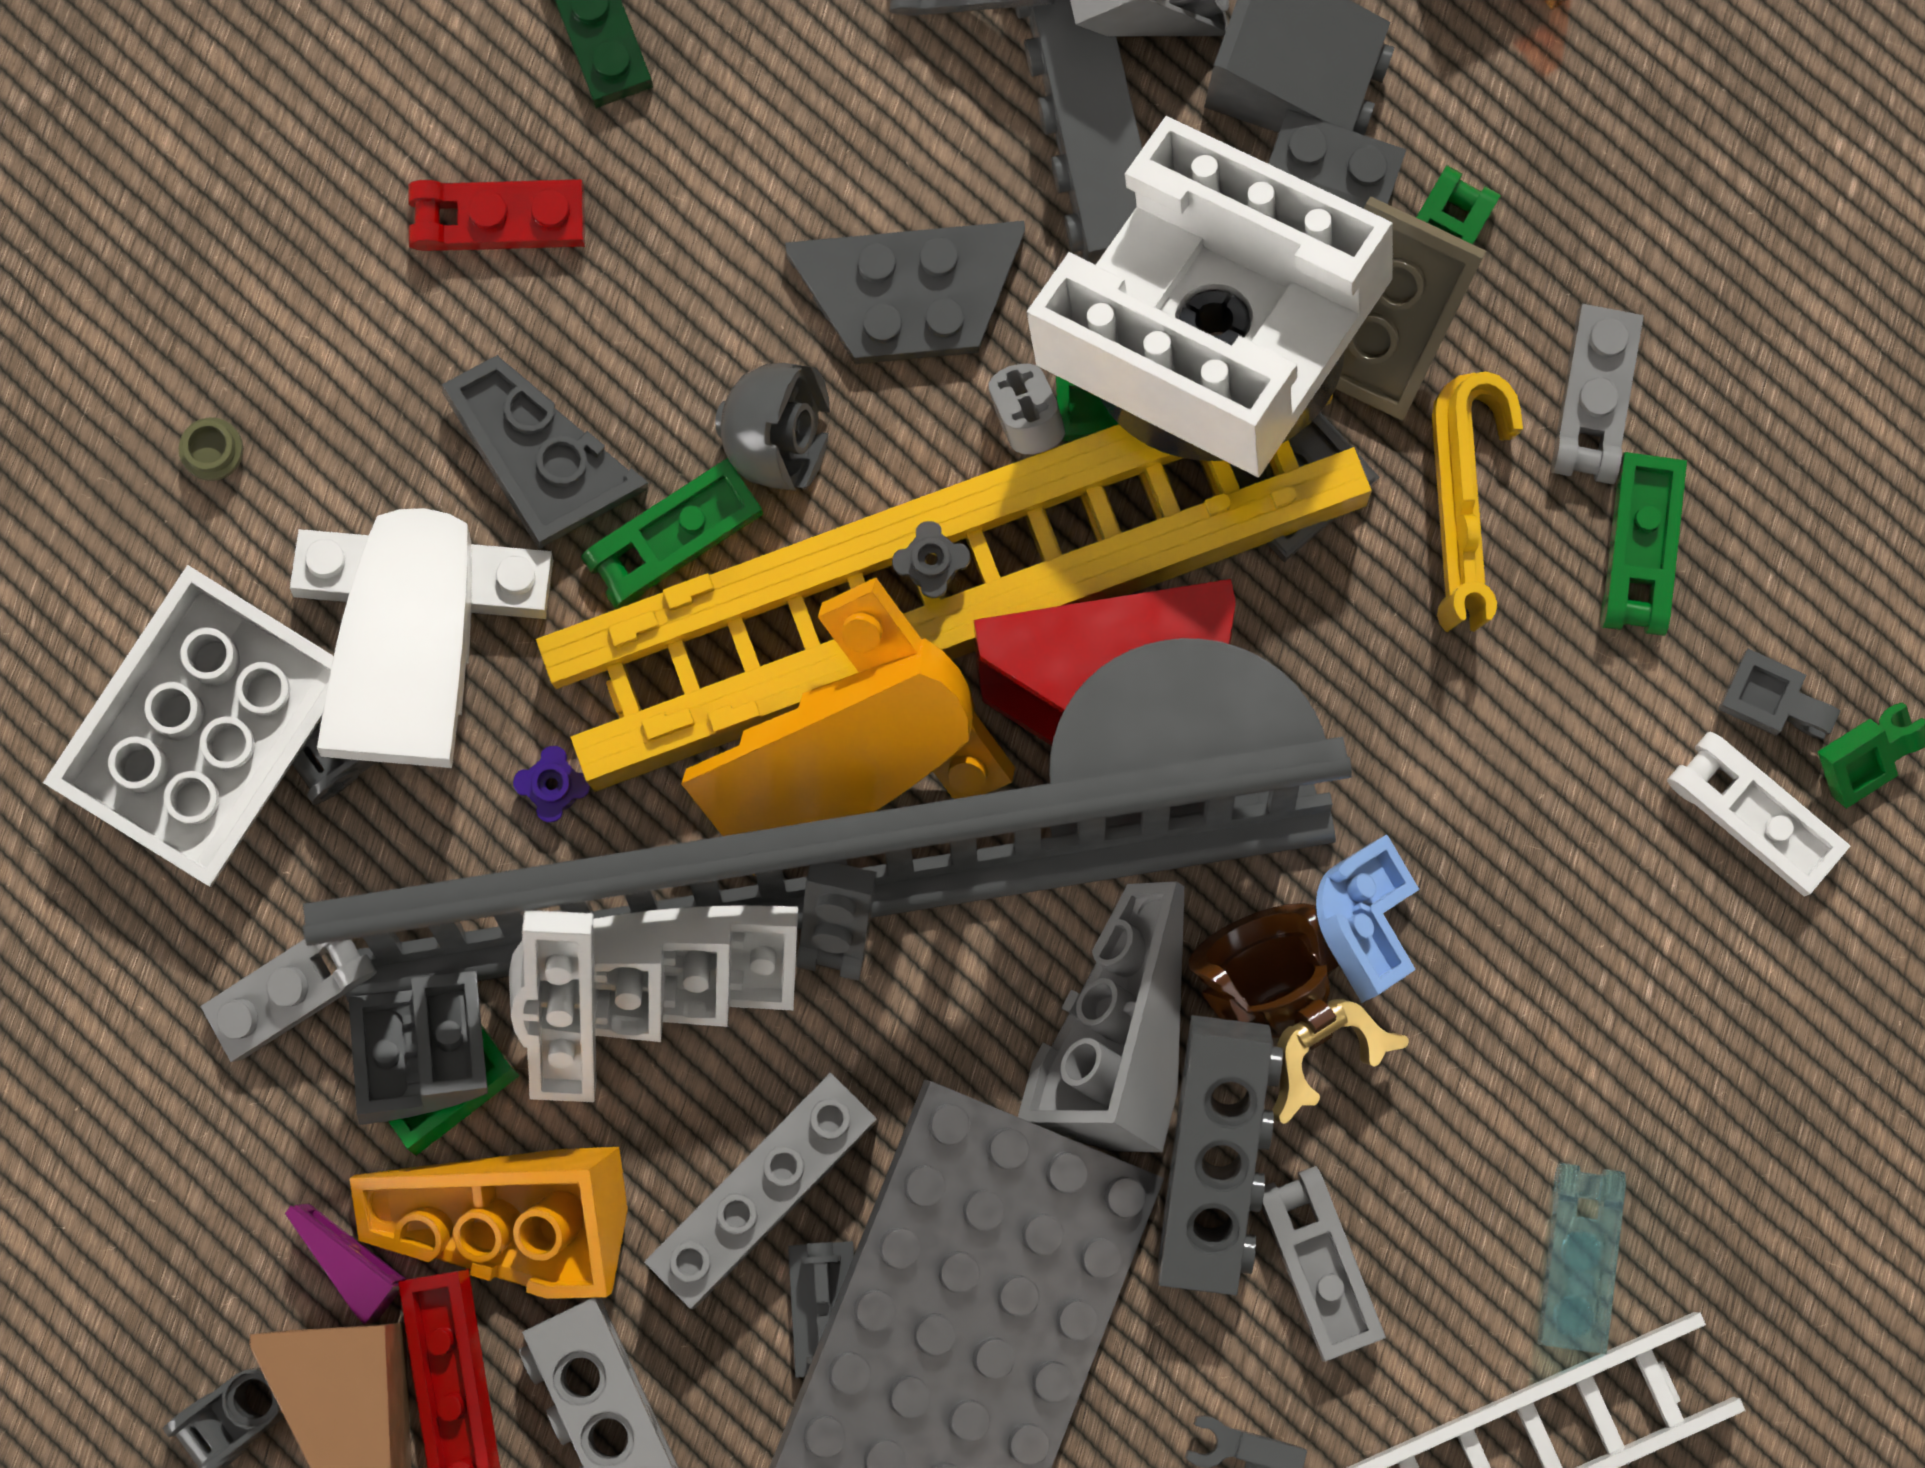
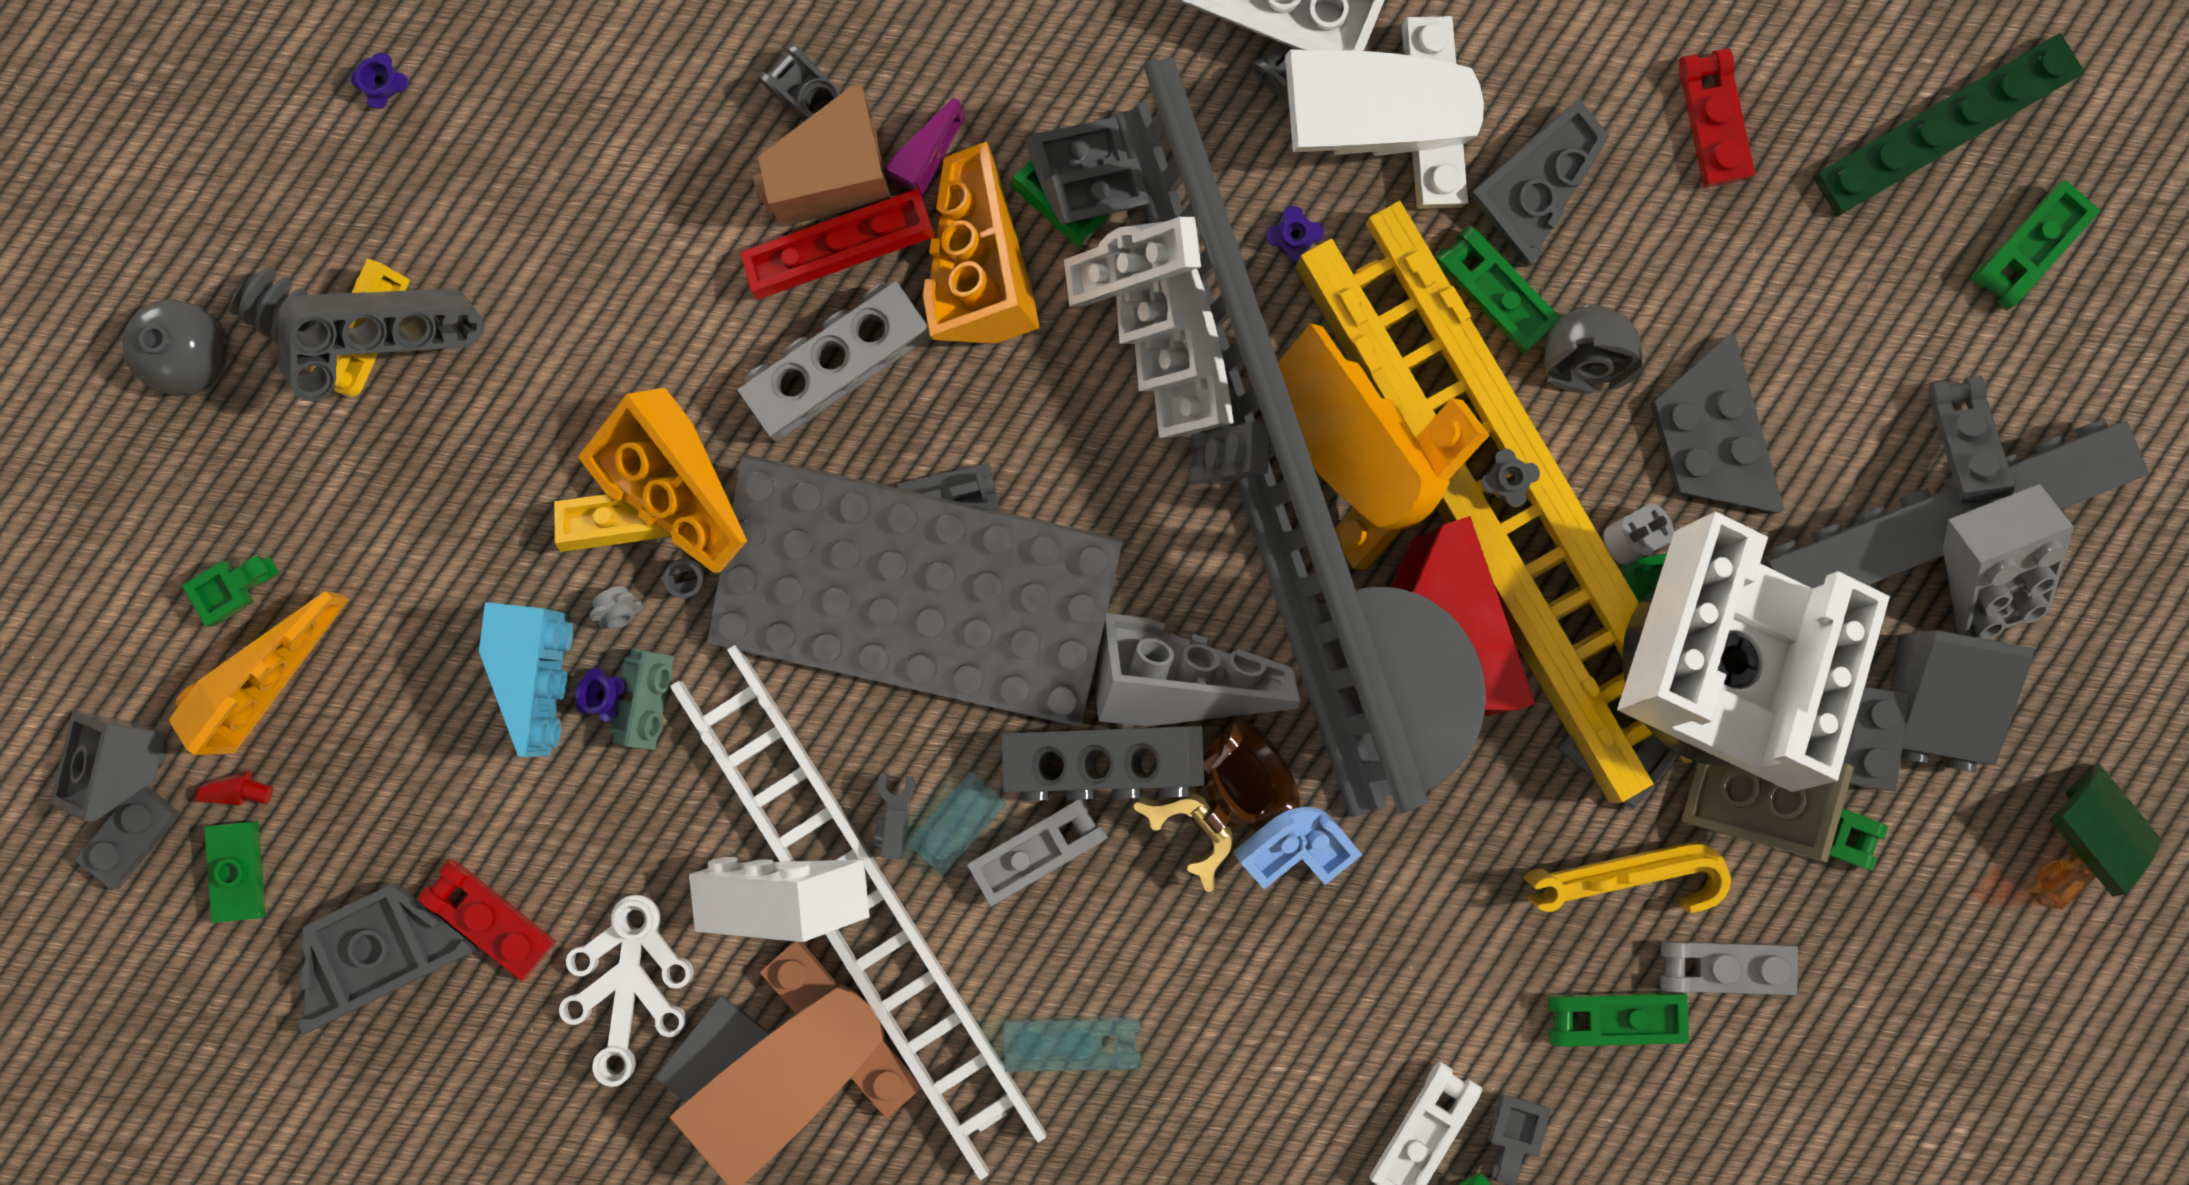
camera: 85 degrees right, 5 degrees up
(283, 995) = (1109, 69): light grey plate -> none
(761, 1191) = (1024, 435): light grey brick -> none
(1266, 1367) = (957, 823): none -> clear light blue plate

